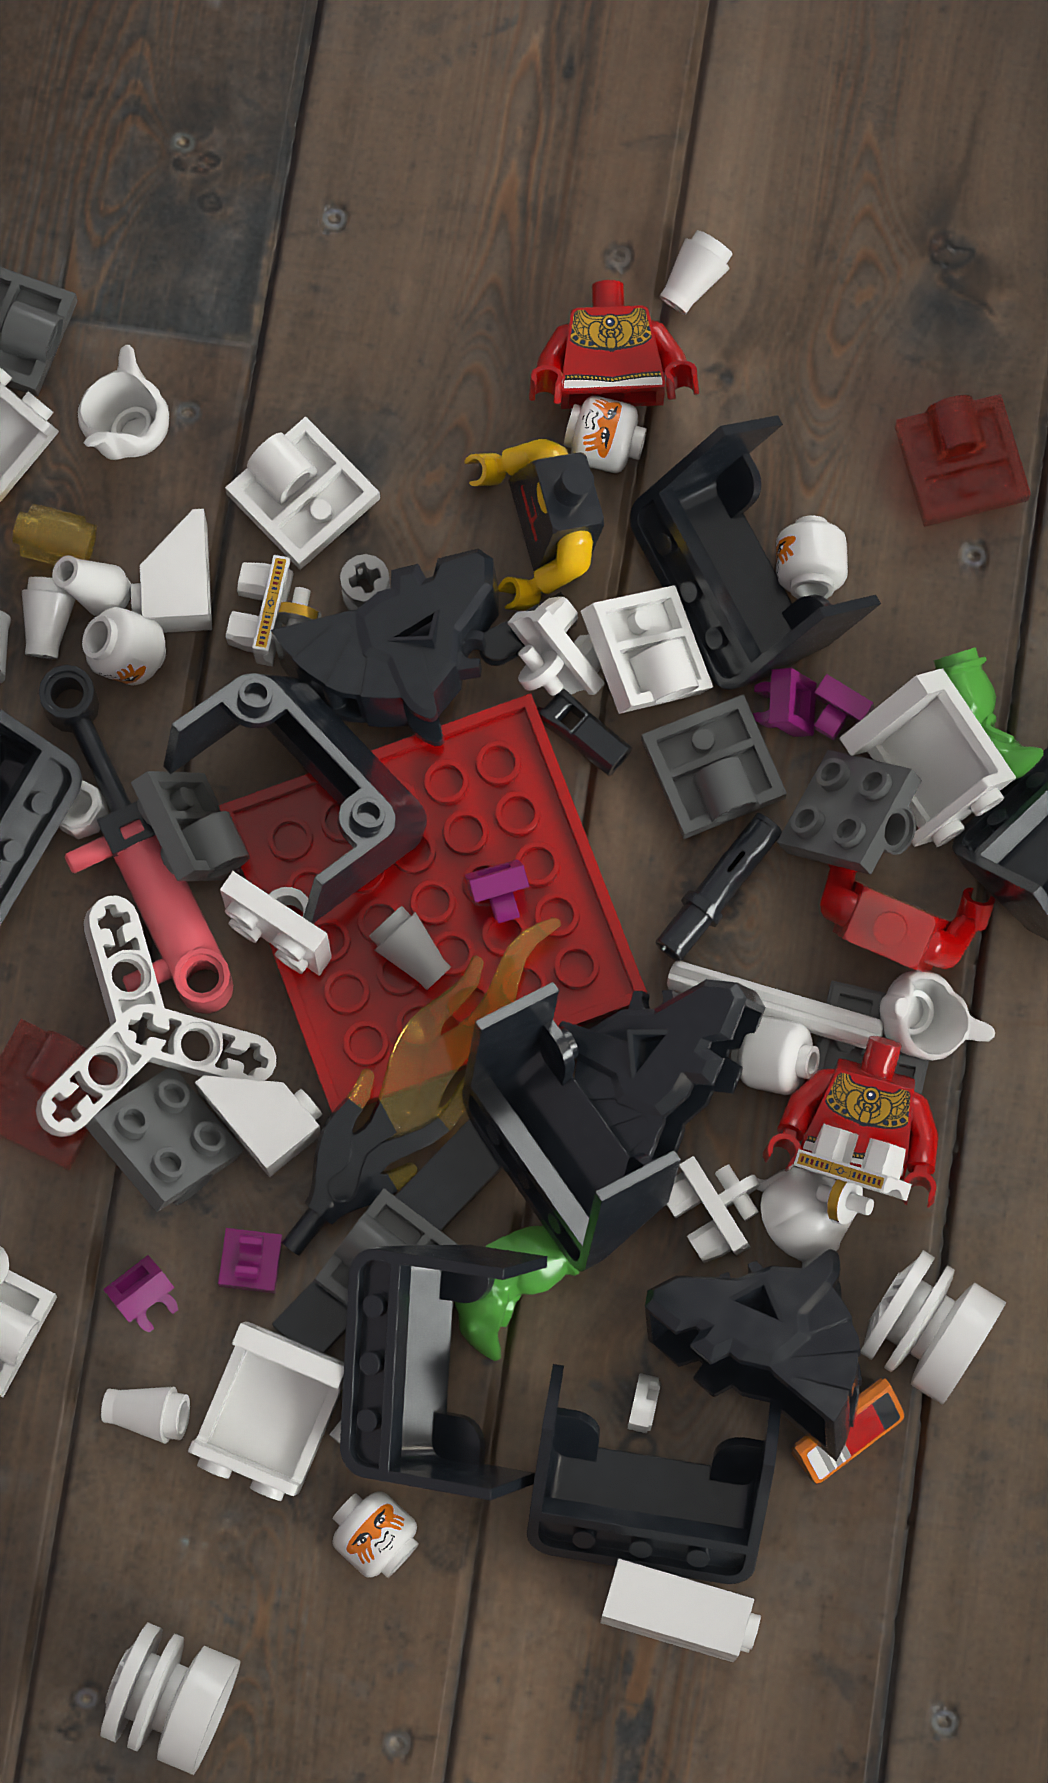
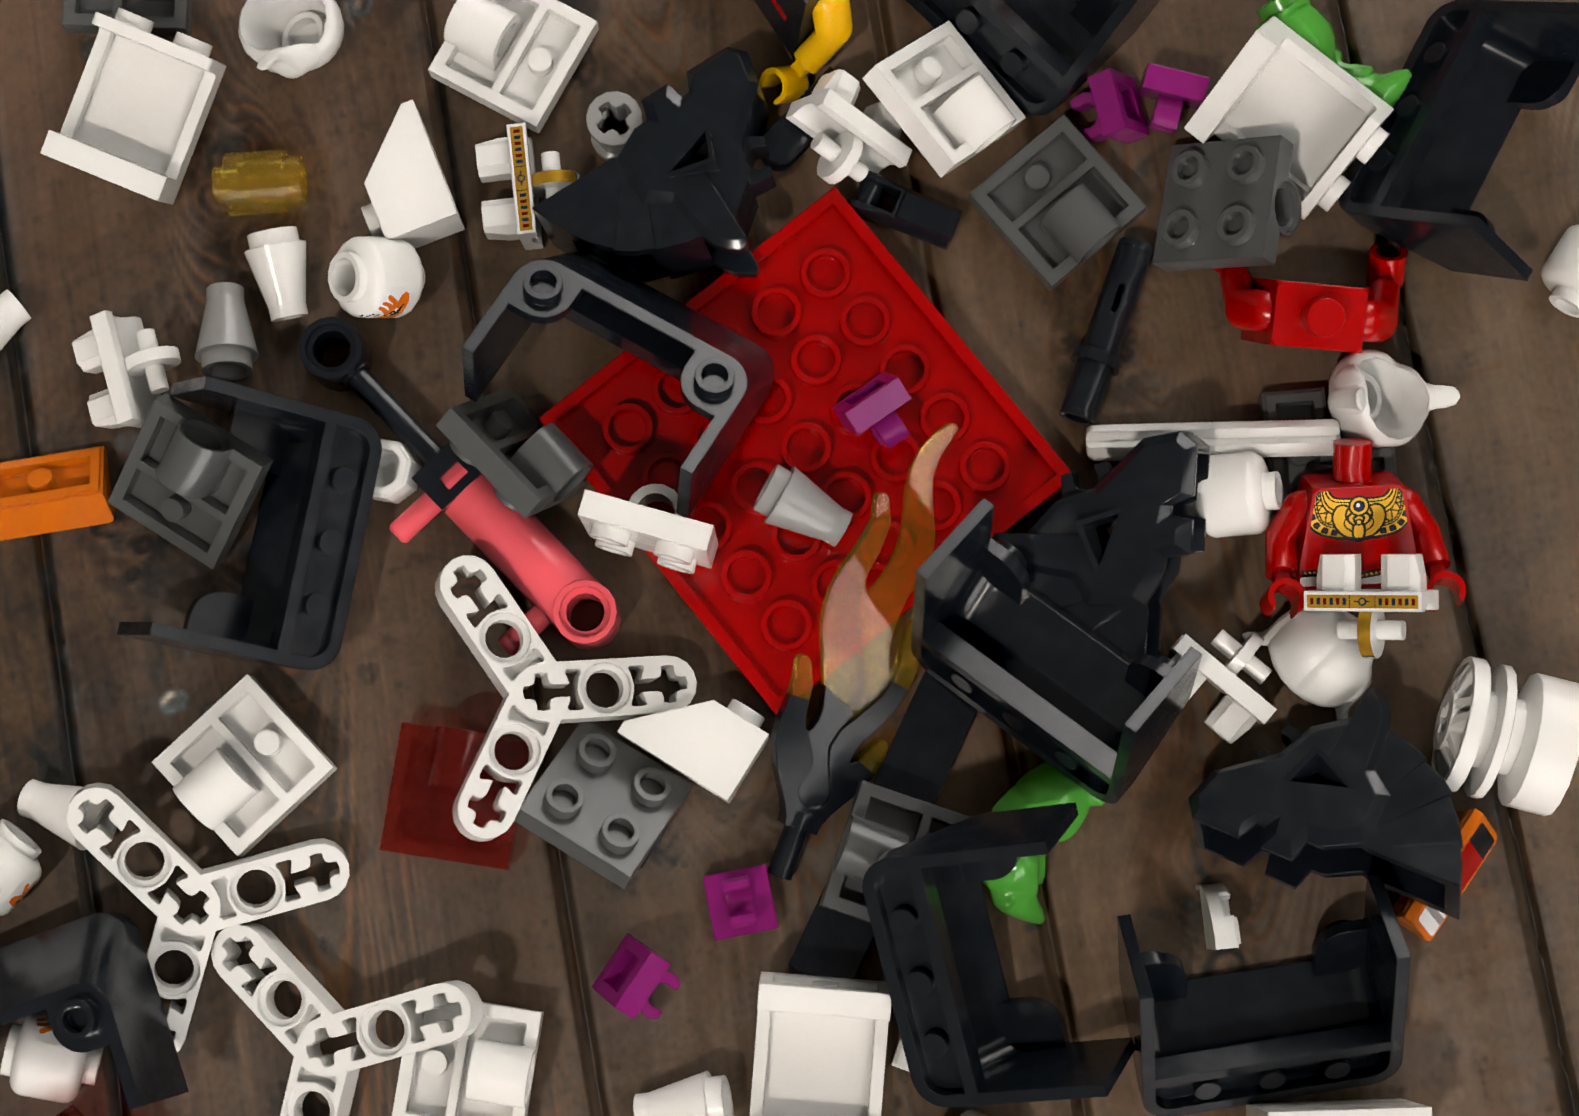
camera: 15 degrees left, 5 degrees up
(92, 583) = (319, 220): white cone -> none

